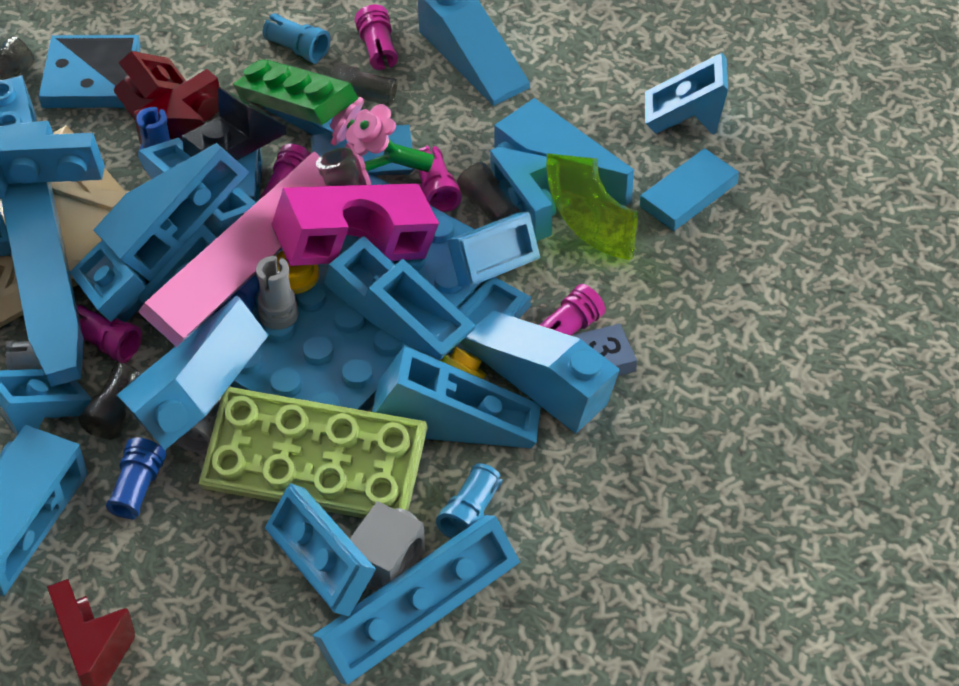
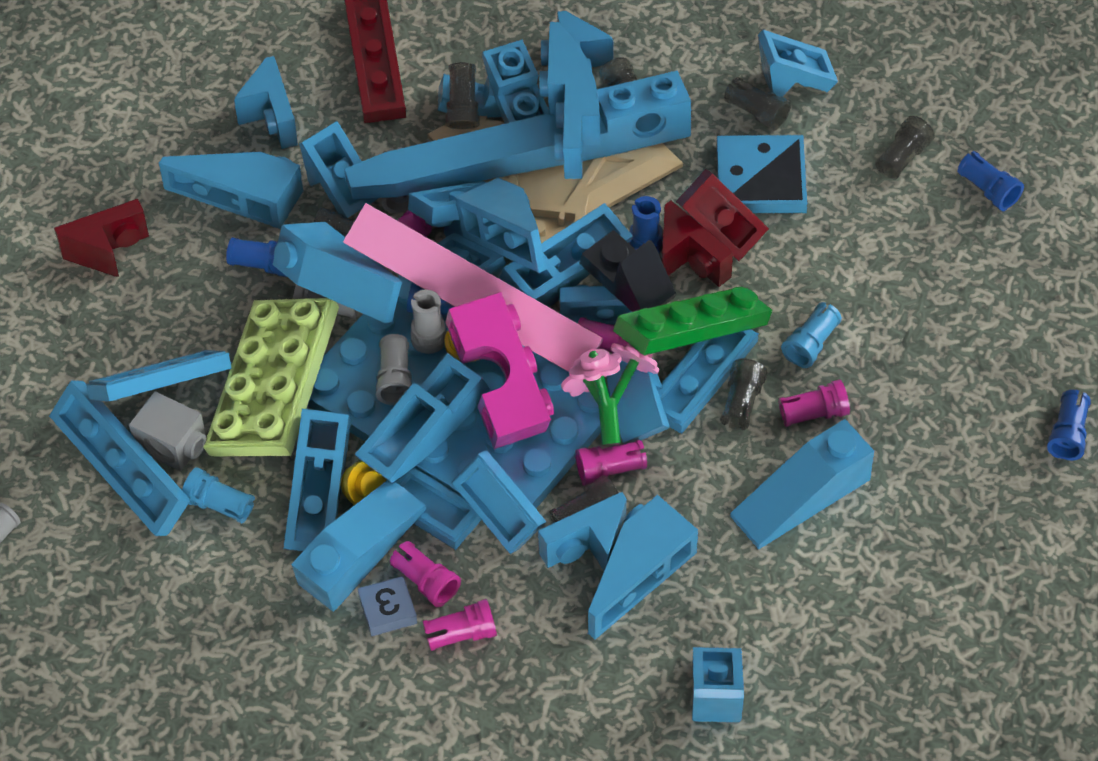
camera: 90 degrees right, 5 degrees up
(338, 167) = (557, 356): clear smoke pin -> none
(338, 329) = (393, 375): none -> light grey pin
(588, 207) = (556, 584): clear neon green tile -> none
(627, 280) = (472, 622): none -> dark pink pin
(689, 189) = (603, 688): dark azure tile -> none

